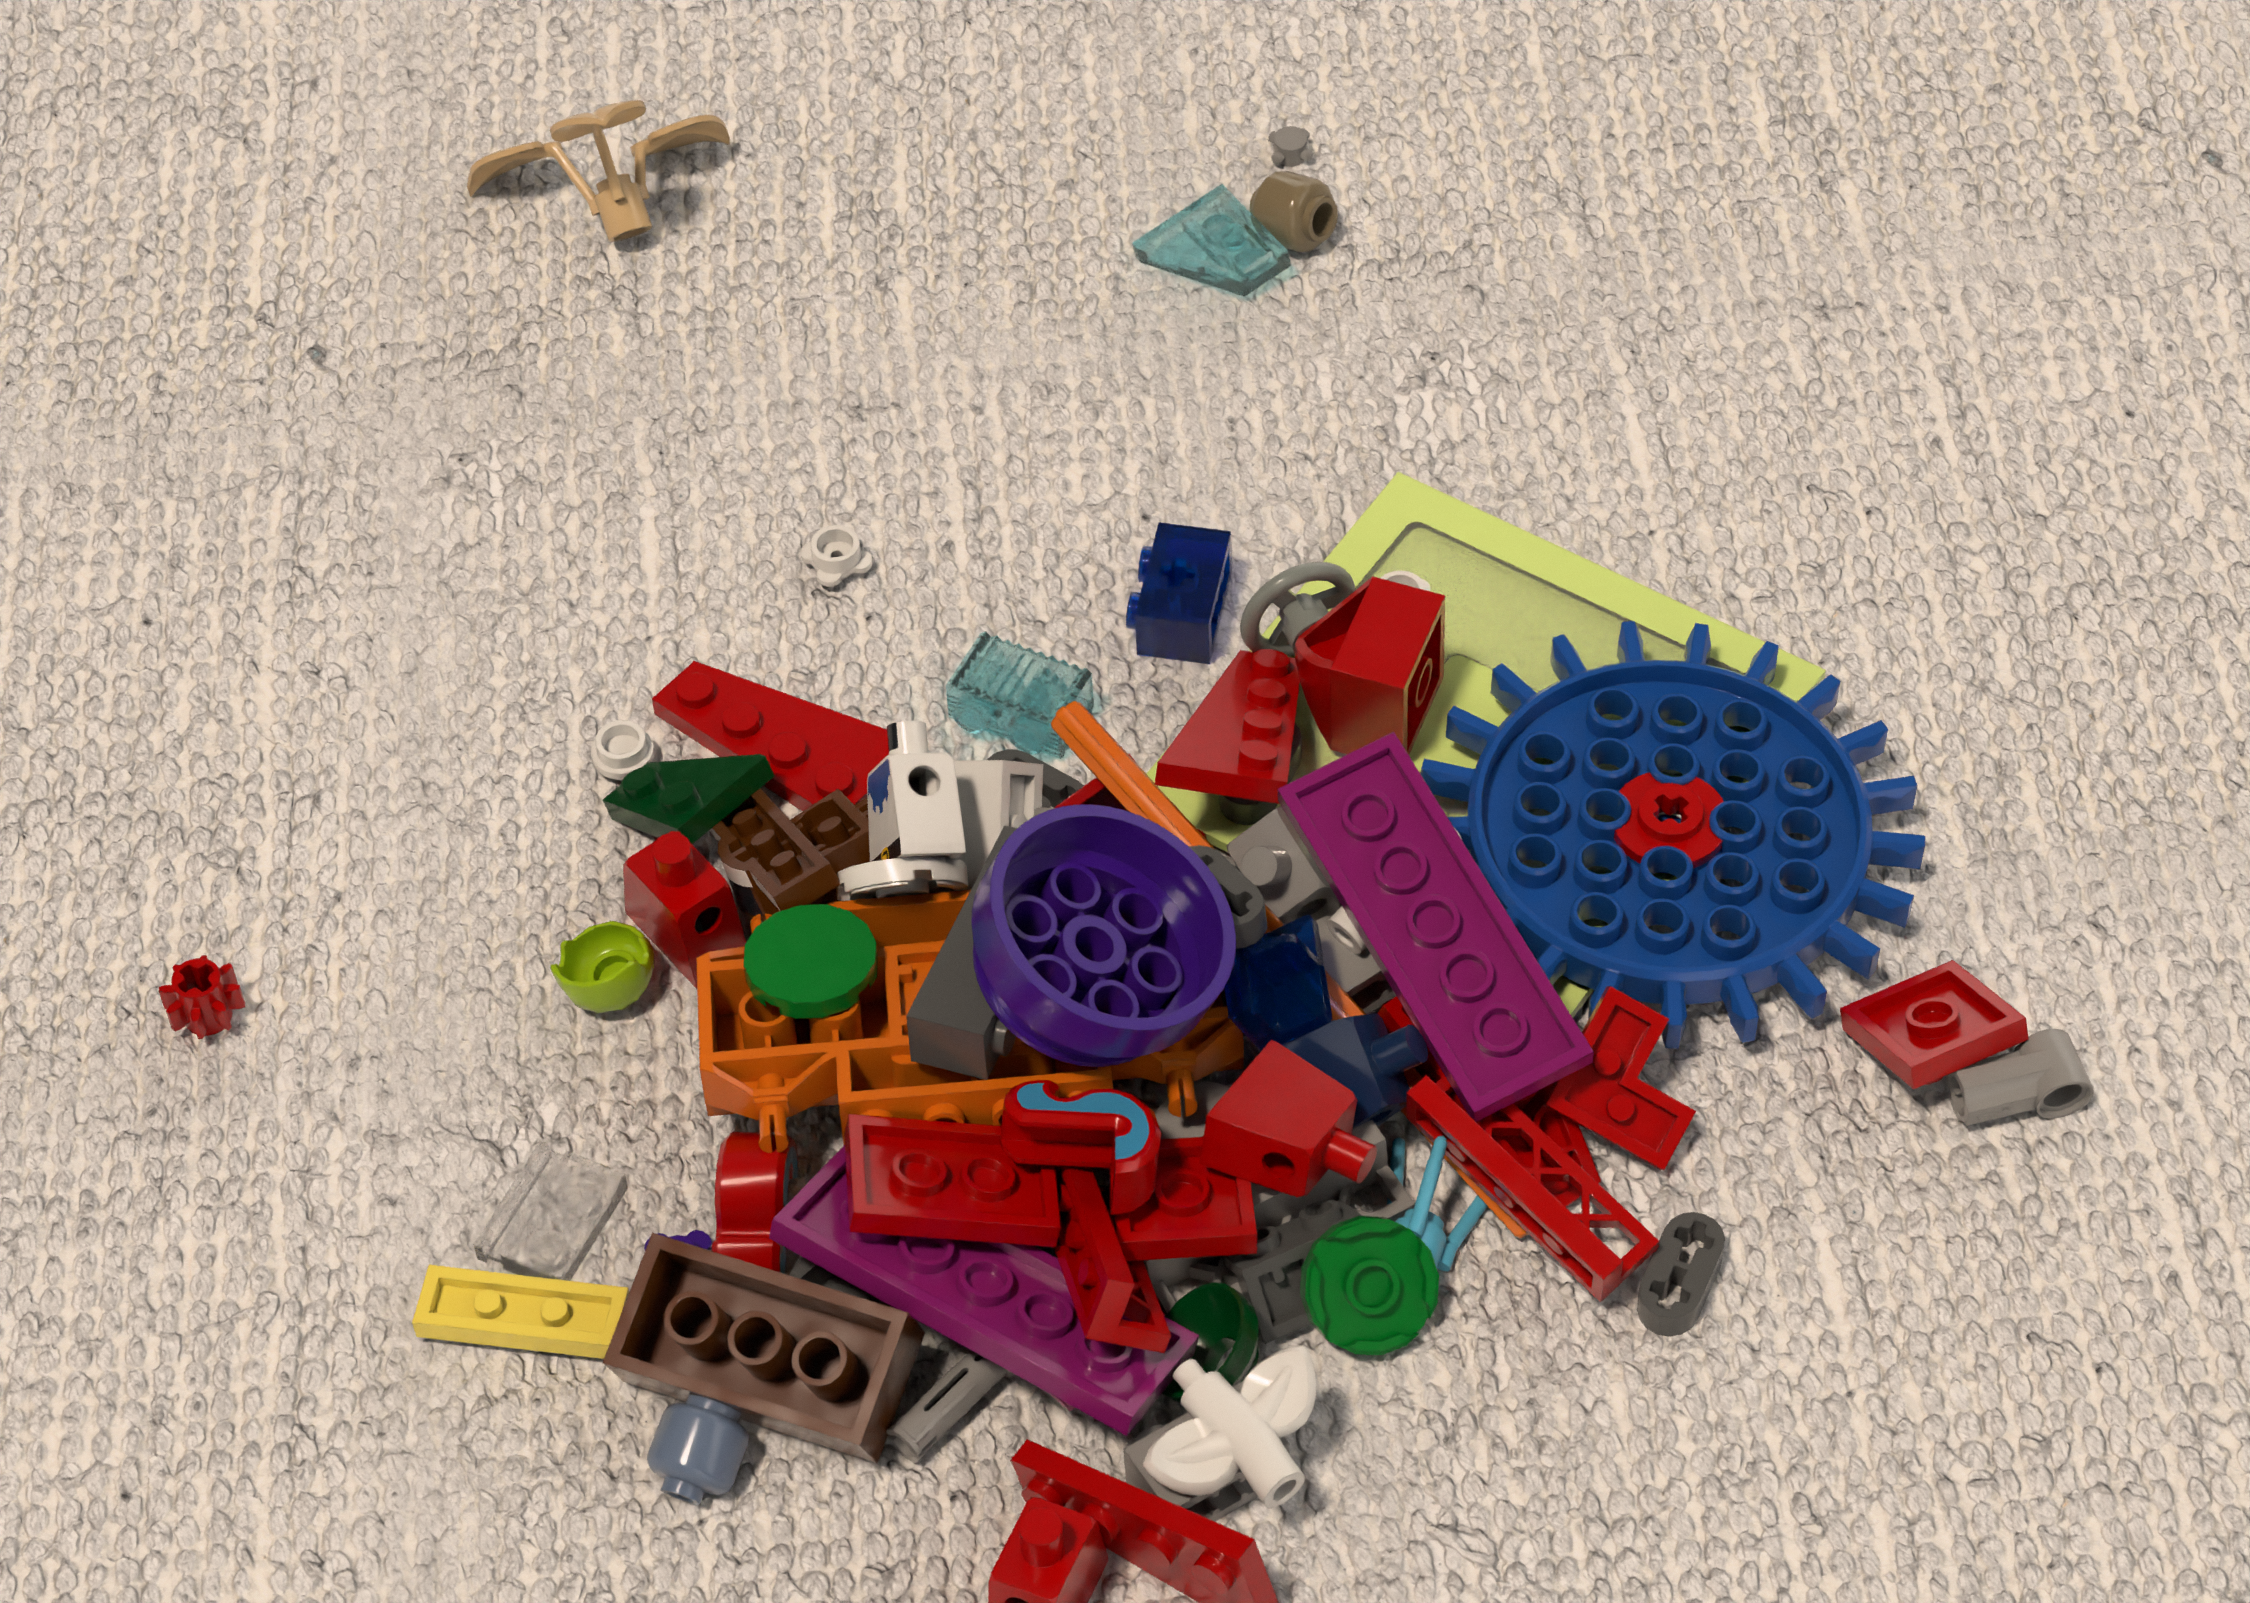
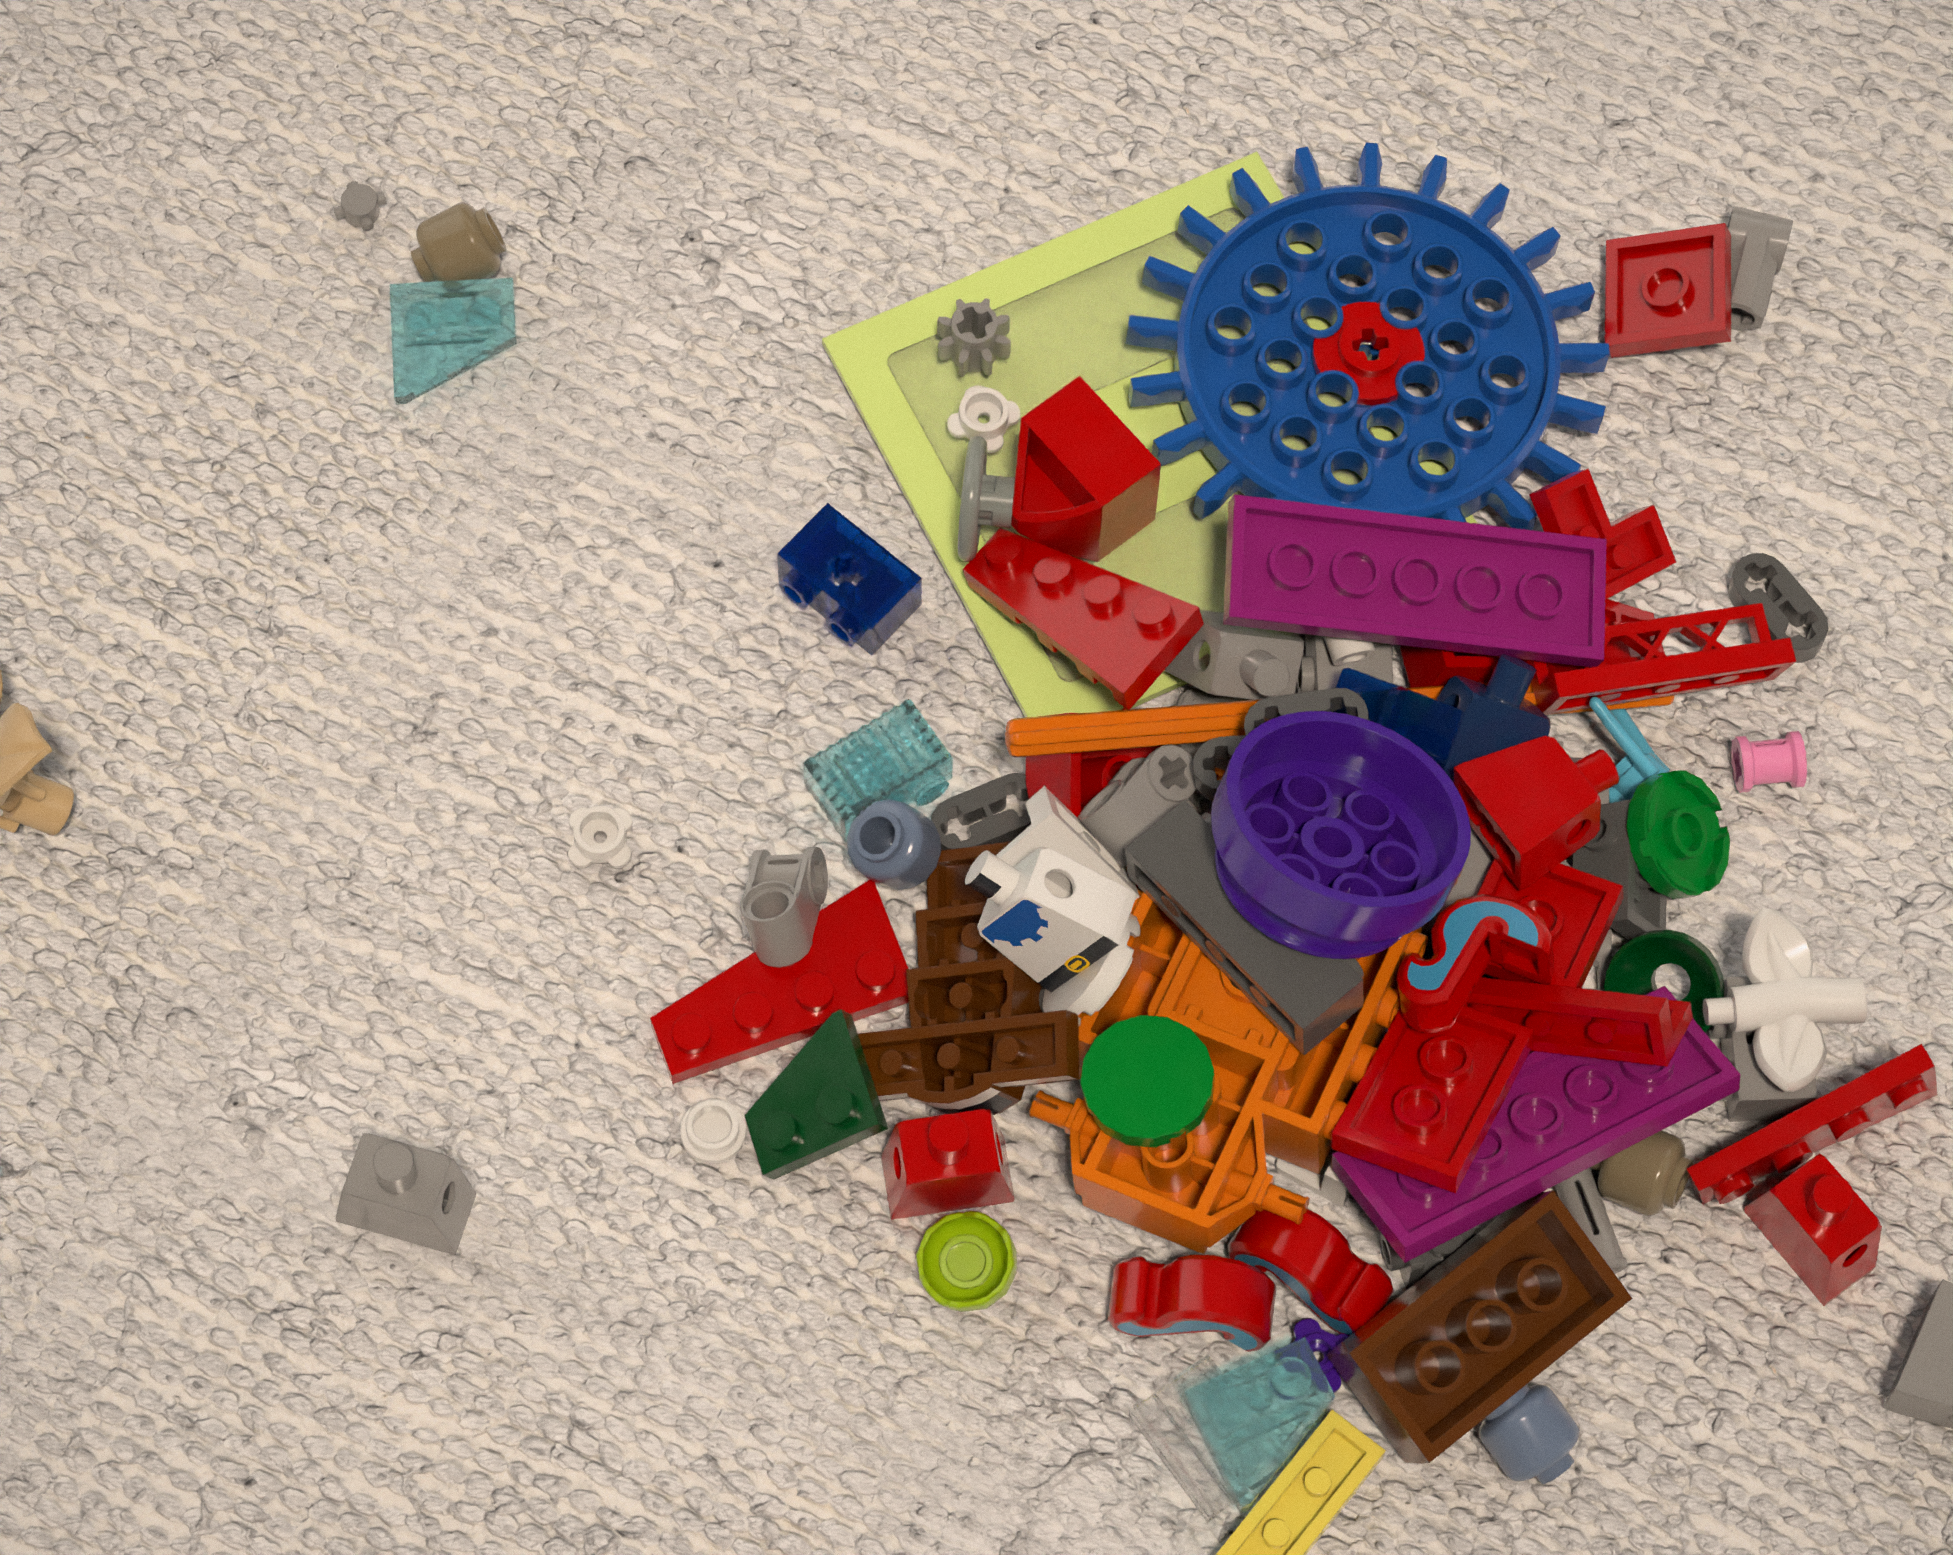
camera: 65 degrees left, 15 degrees up
(426, 552) = (401, 1194): none -> light grey torso
(579, 1230) = (1259, 1416): none -> clear light blue wing
(670, 1140) = (1193, 1297): none -> red animal
(848, 684) = (784, 903): none -> light grey piece
(955, 721) = (894, 844): none -> sand blue head
(1010, 1412) = (1646, 1174): none -> dark tan head
(1466, 553) = (974, 337): none -> light grey gear
(1508, 1333) = (1769, 761): none -> bright pink bush

